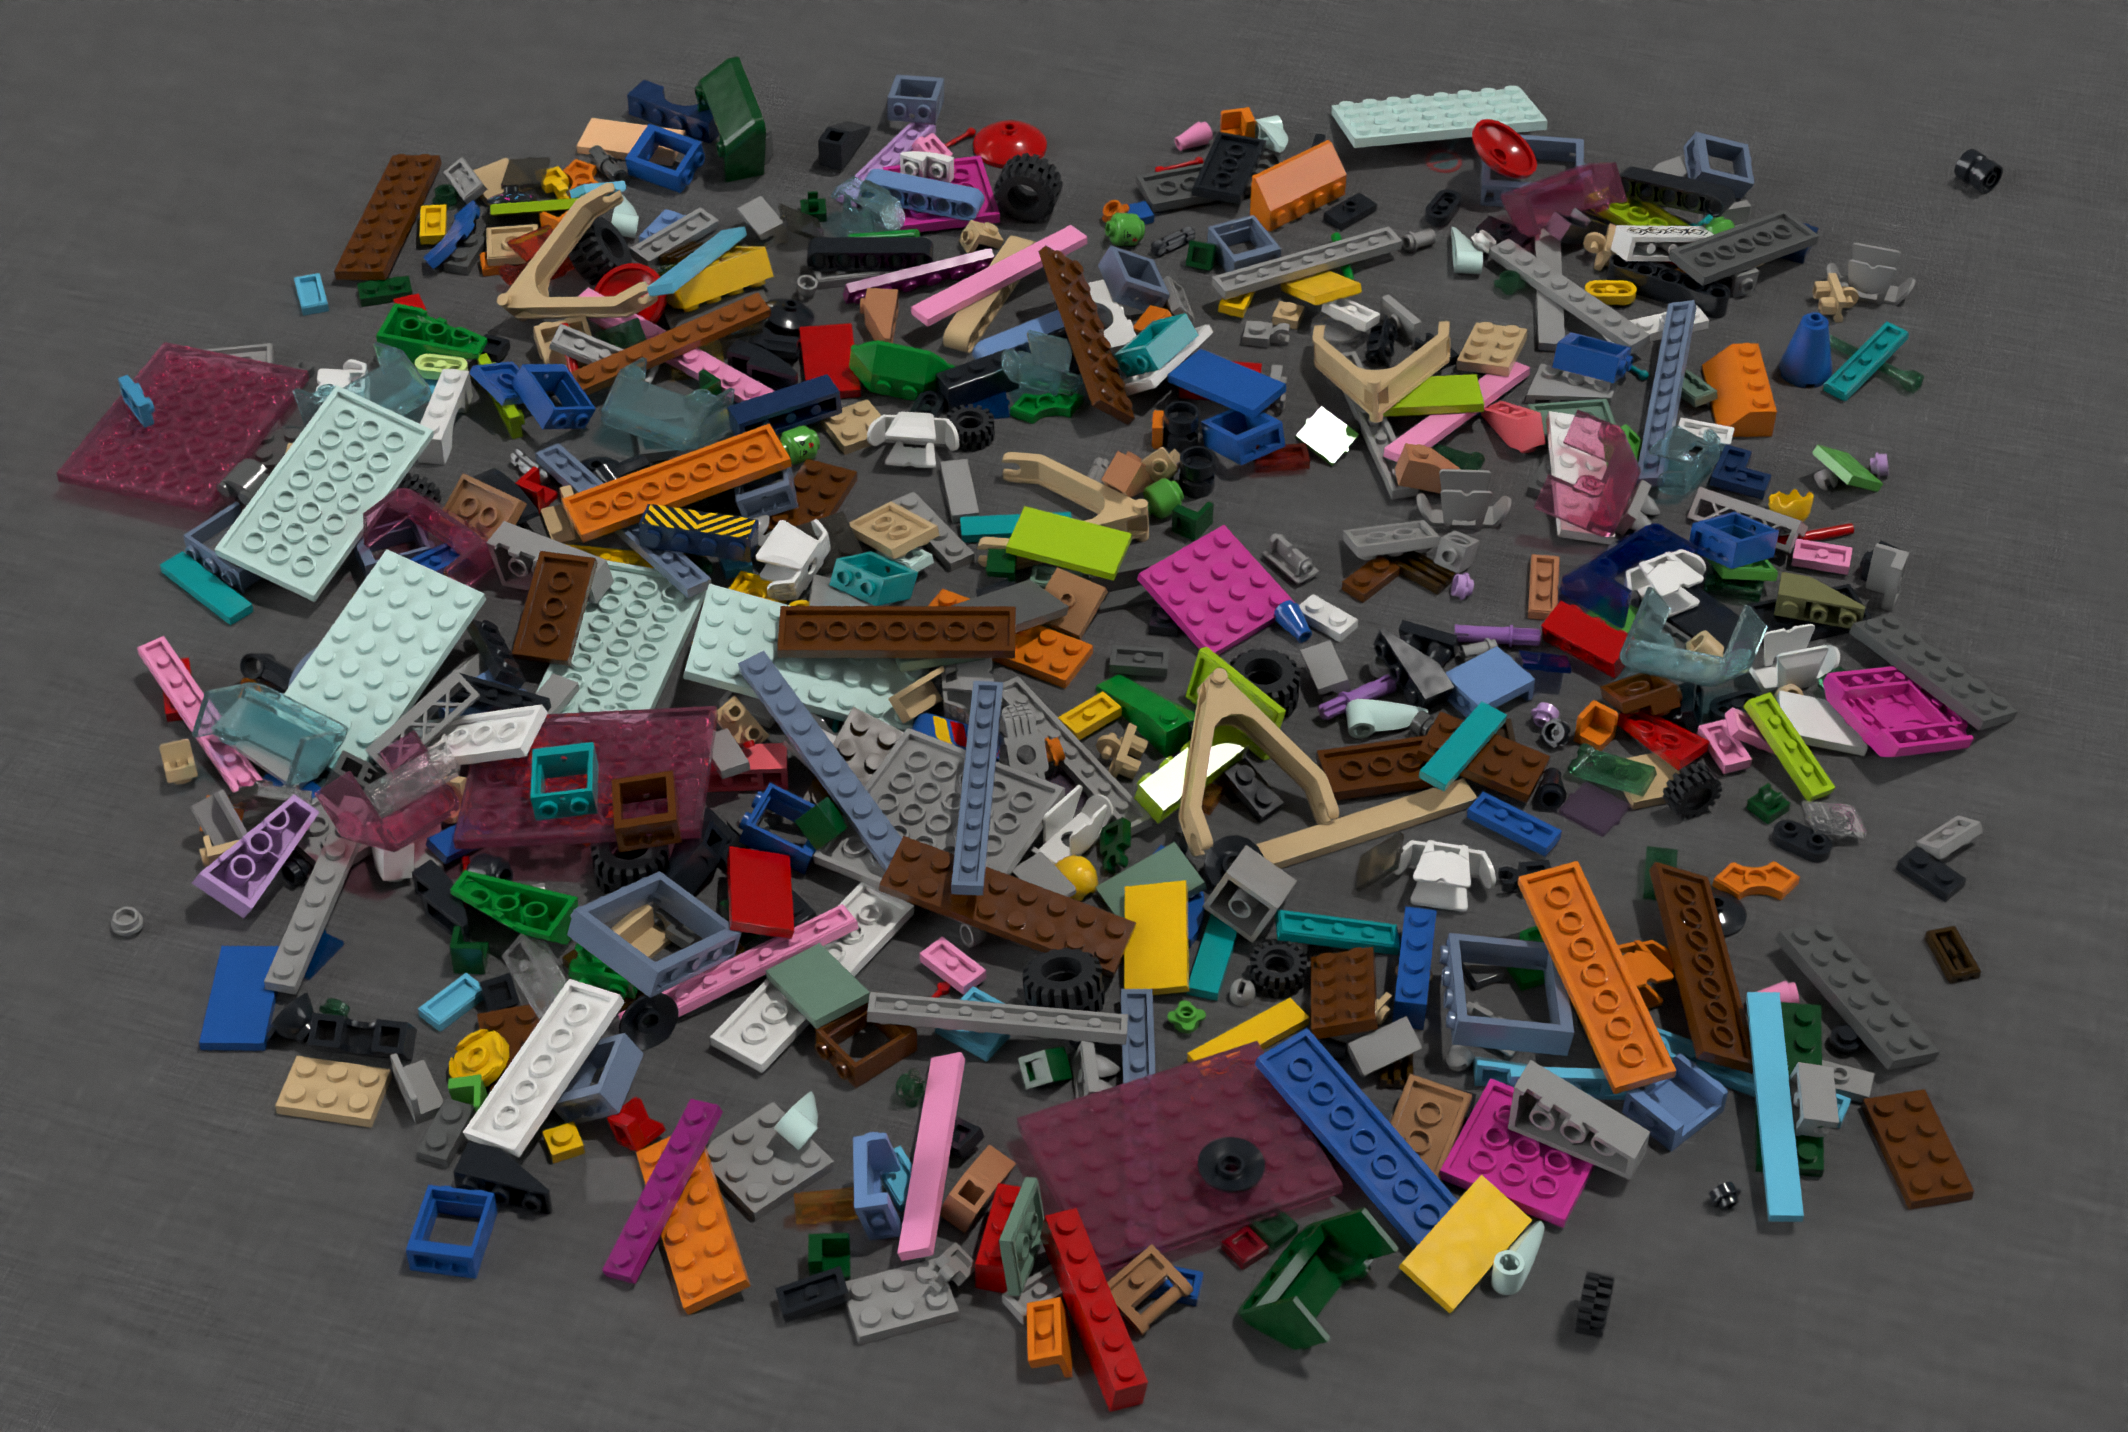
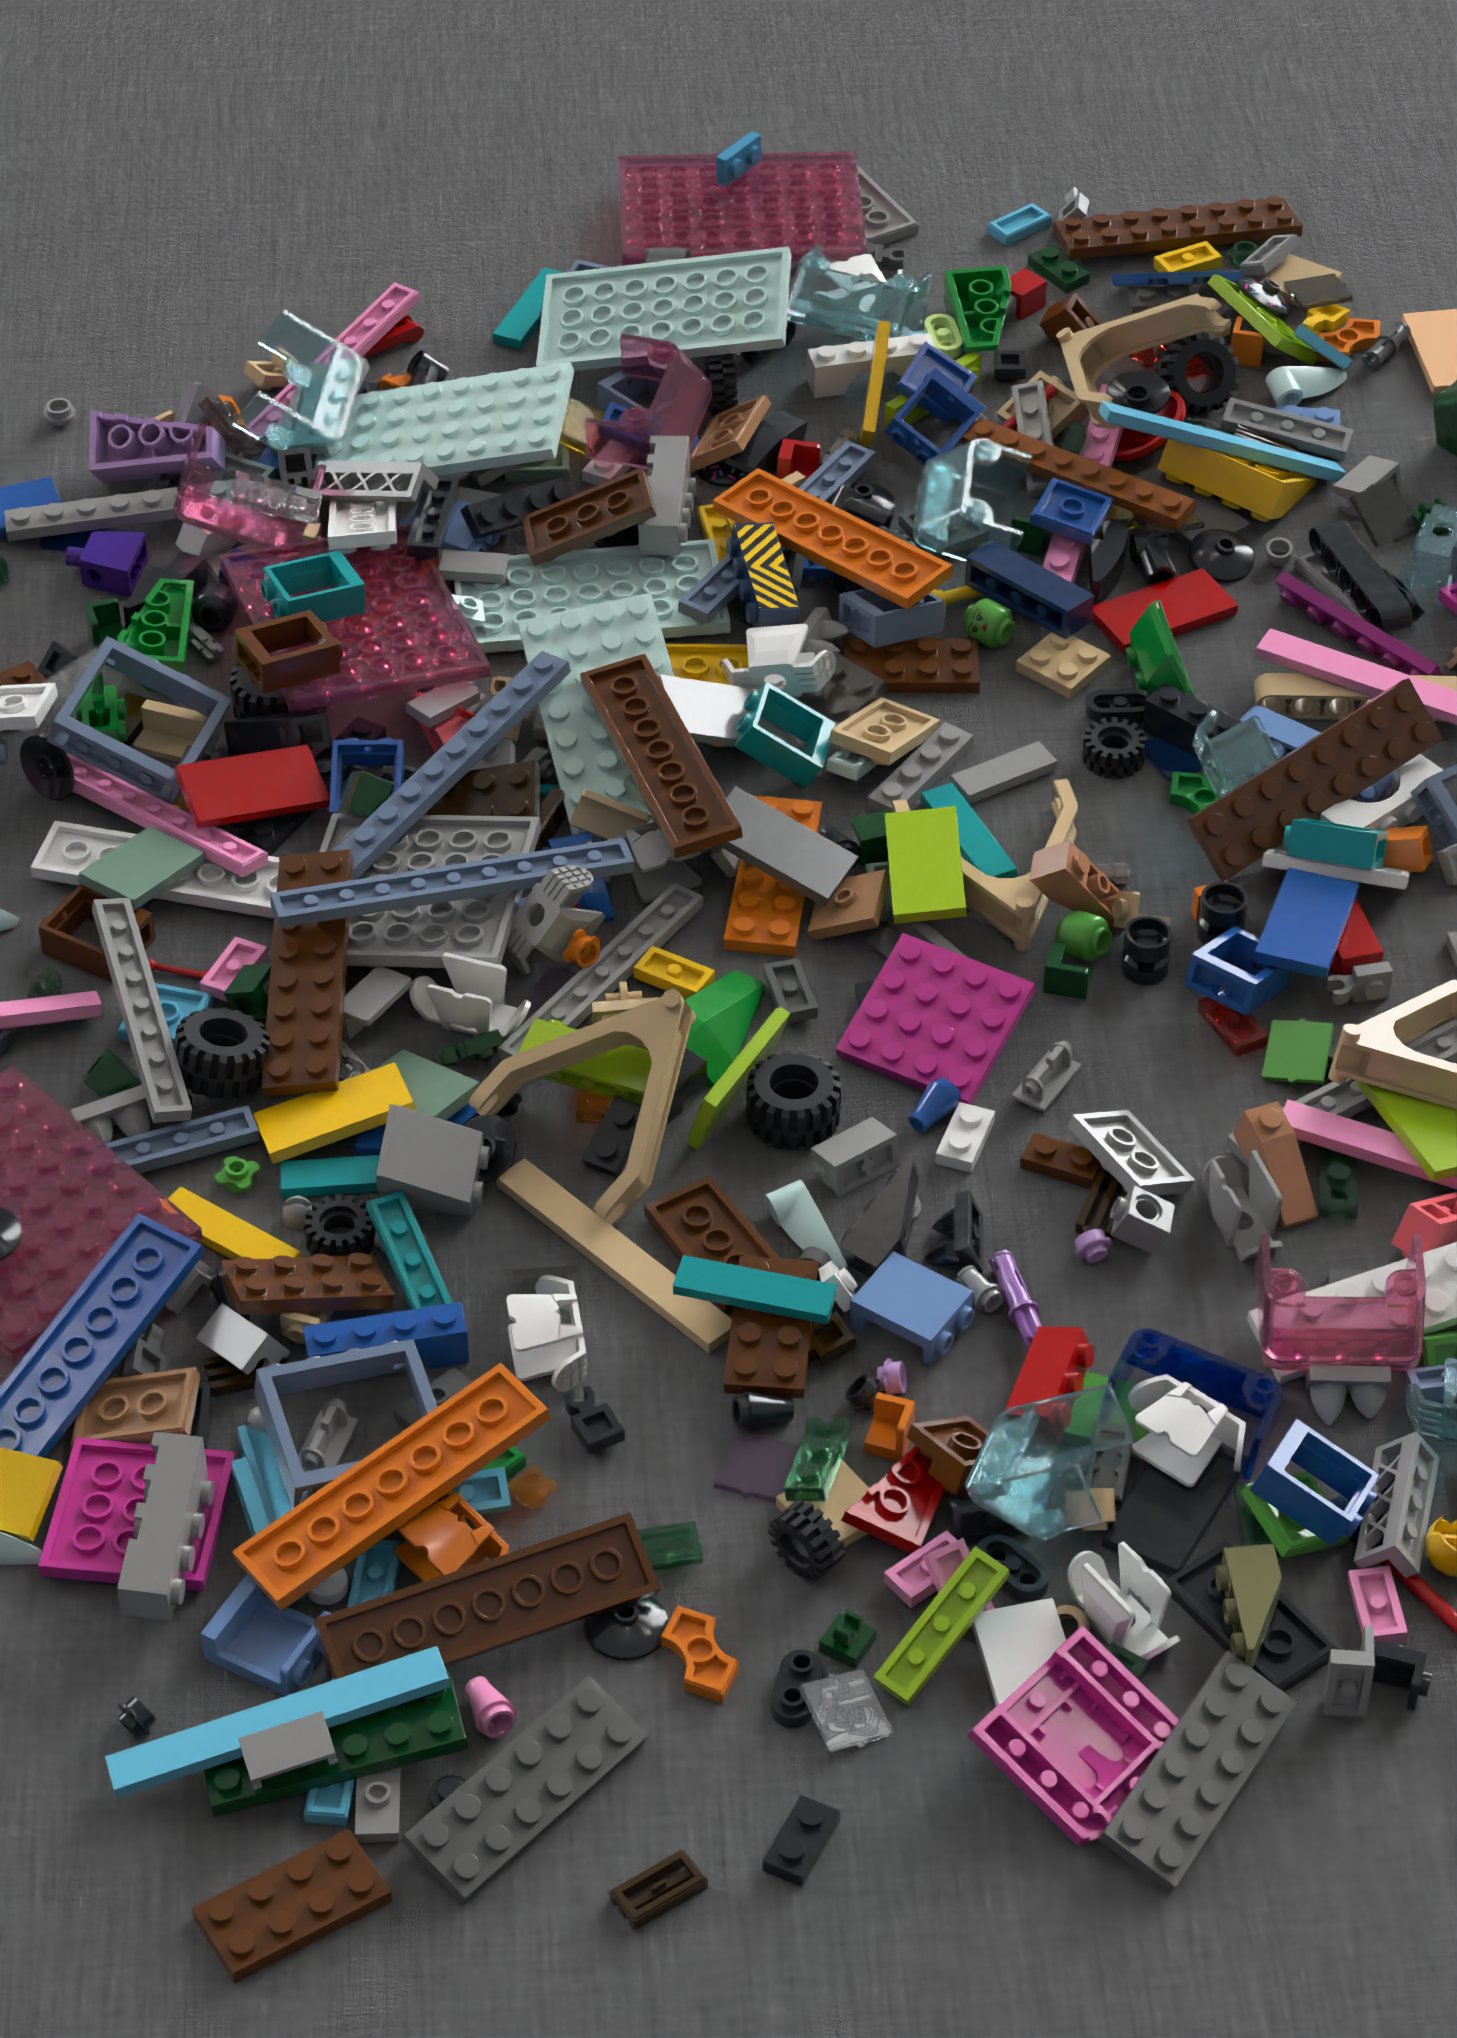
camera: 70 degrees right, 0 degrees up
(324, 258) = (1075, 205): none -> light grey plate
(378, 928) = (111, 561): none -> dark purple torso
(451, 1002) = (36, 640): medium azure tile -> none
(472, 301) = (1067, 313): none -> reddish brown slope
(487, 413) = (875, 383): none -> yellow tile
(608, 280) = (1139, 391): none -> black dish
(653, 137) = (1415, 358): blue window -> none
(716, 359) = (1071, 511): none -> blue tile
(880, 313) = (1250, 623): nougat slope -> none
(897, 233) = (1406, 580): green bar -> none
(913, 429) = (1049, 689): white piece -> none
(994, 954) = (247, 990): none -> dark green panel
(1080, 874) = (407, 1027): yellow hair -> none
(1367, 691) = (824, 1190): medium lavender axle -> none
(1456, 709) = (843, 1279): none -> white plate
(1514, 824) = (679, 1388): blue plate -> none
(1543, 586) = (1112, 1332): nougat tile -> none
(1544, 662) = (984, 1351): clear blue piece -> none
(1950, 836) = (870, 1843): light grey plate -> none

